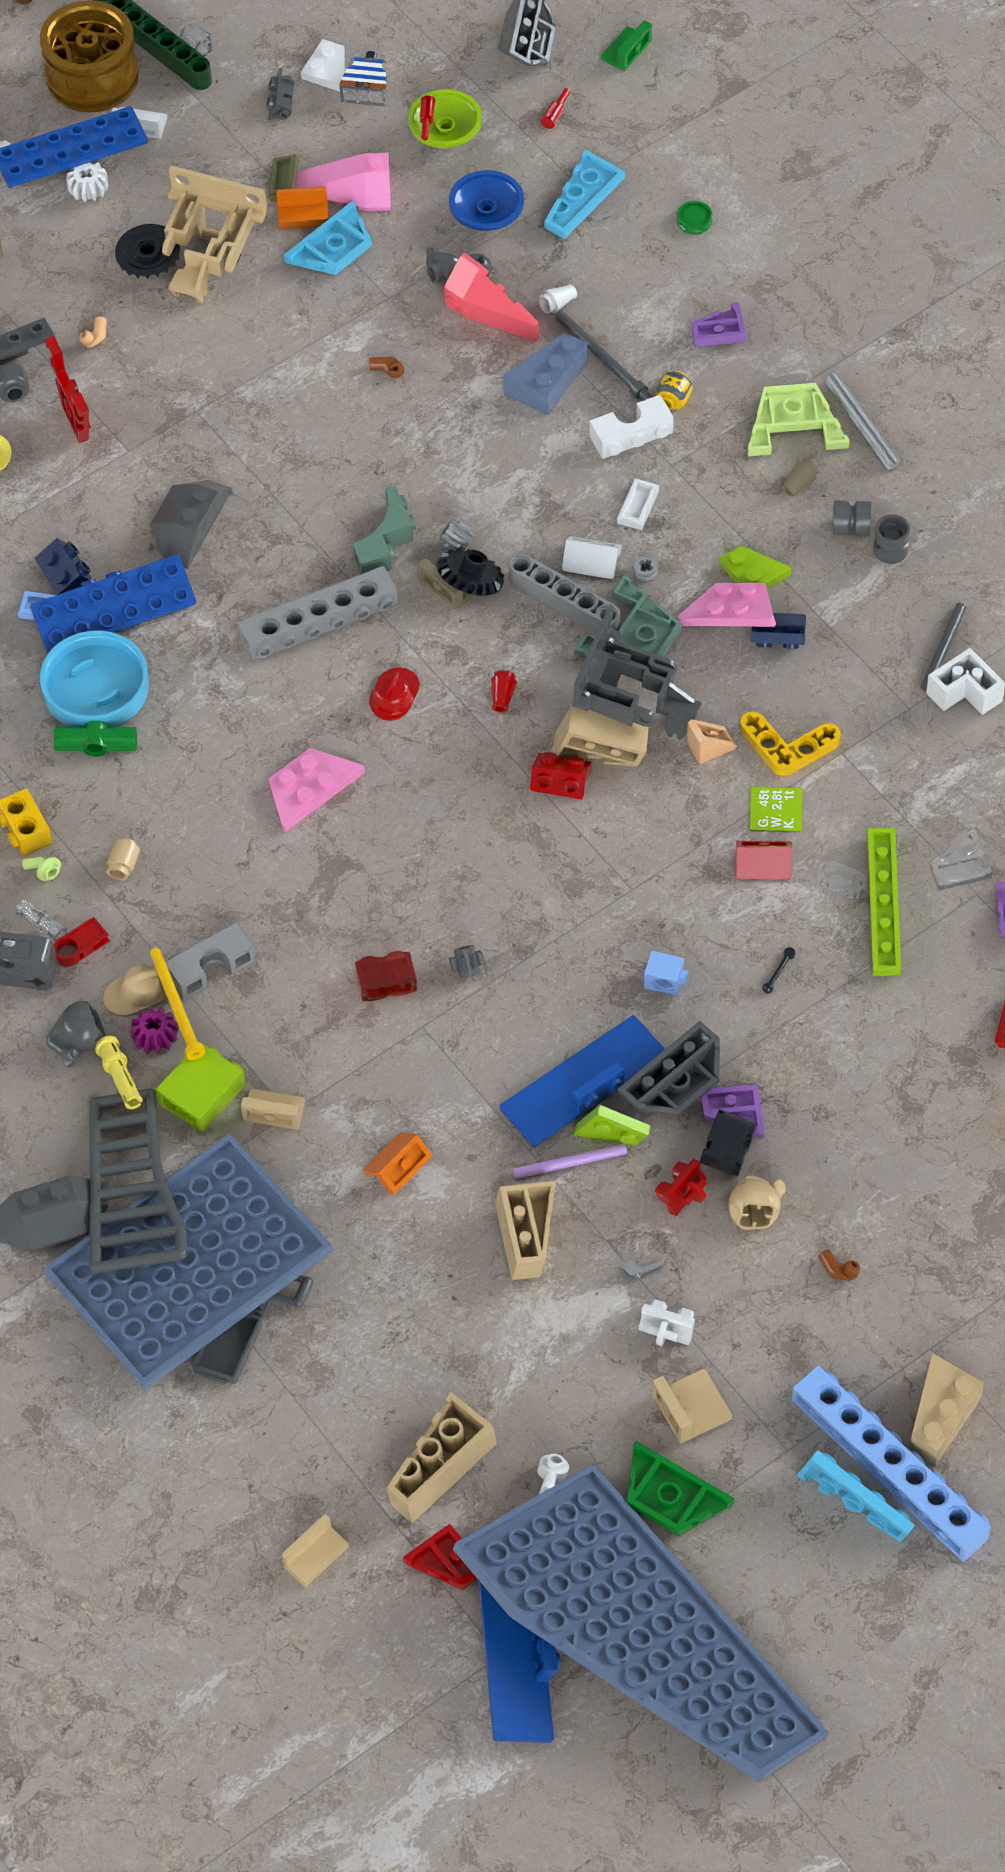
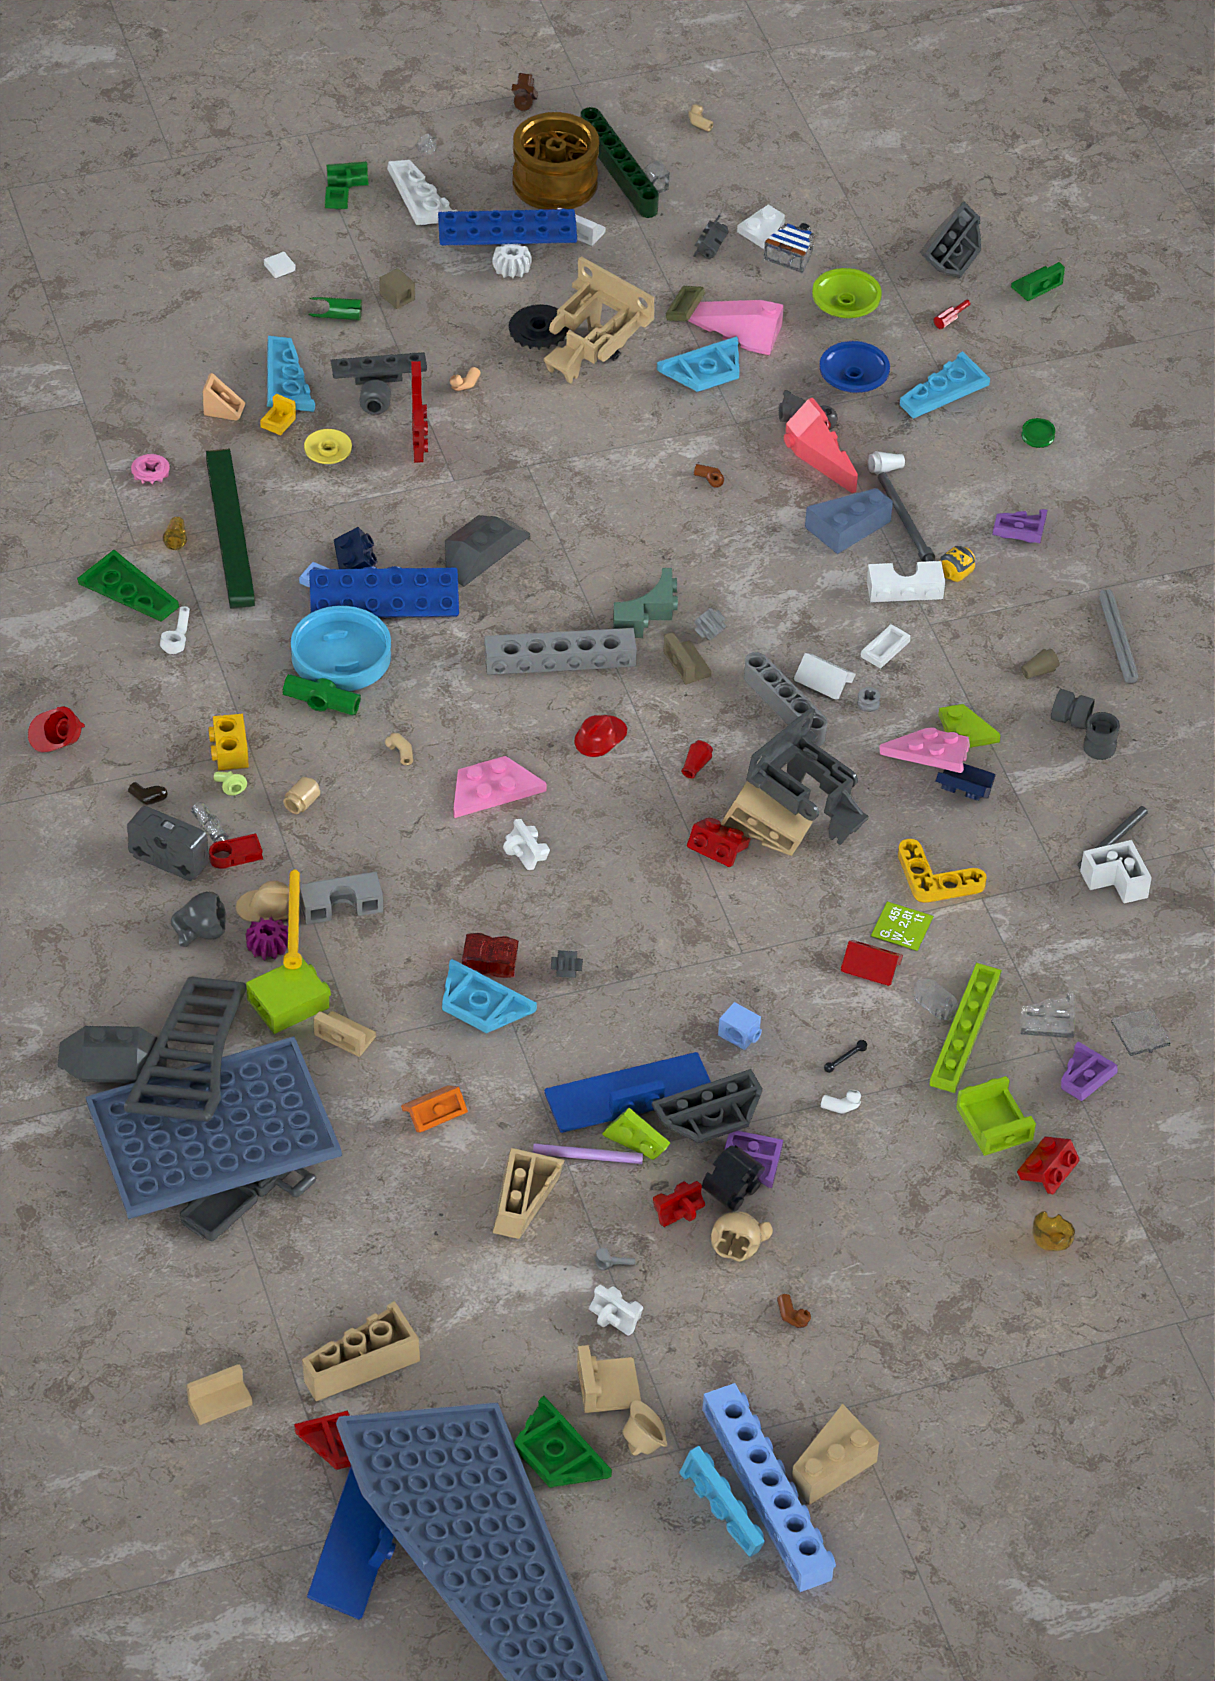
camera: 15 degrees right, 10 degrees down
(115, 1064) = (221, 954): light yellow pin -> none
(202, 769) = (405, 748): none -> tan arm
(302, 207) = (690, 329): orange panel -> none
(368, 841) = (524, 845): none -> white hips
(396, 1028) = (482, 1000): none -> medium azure wing
(426, 115) = (830, 283): red axle -> none
(470, 572) = (709, 655): black gear -> none
(553, 1470) = (459, 1395): white plate -> none
(646, 627) = (851, 742): sand green wing -> none
(708, 740) = (863, 851): light nougat slope -> none
(748, 1444) = (644, 1429): none -> tan piece
(794, 409) = (1056, 608): yellowish green wing -> none
(799, 1024) = (842, 1105): none -> white arm
(949, 989) = (994, 1116): none -> lime panel

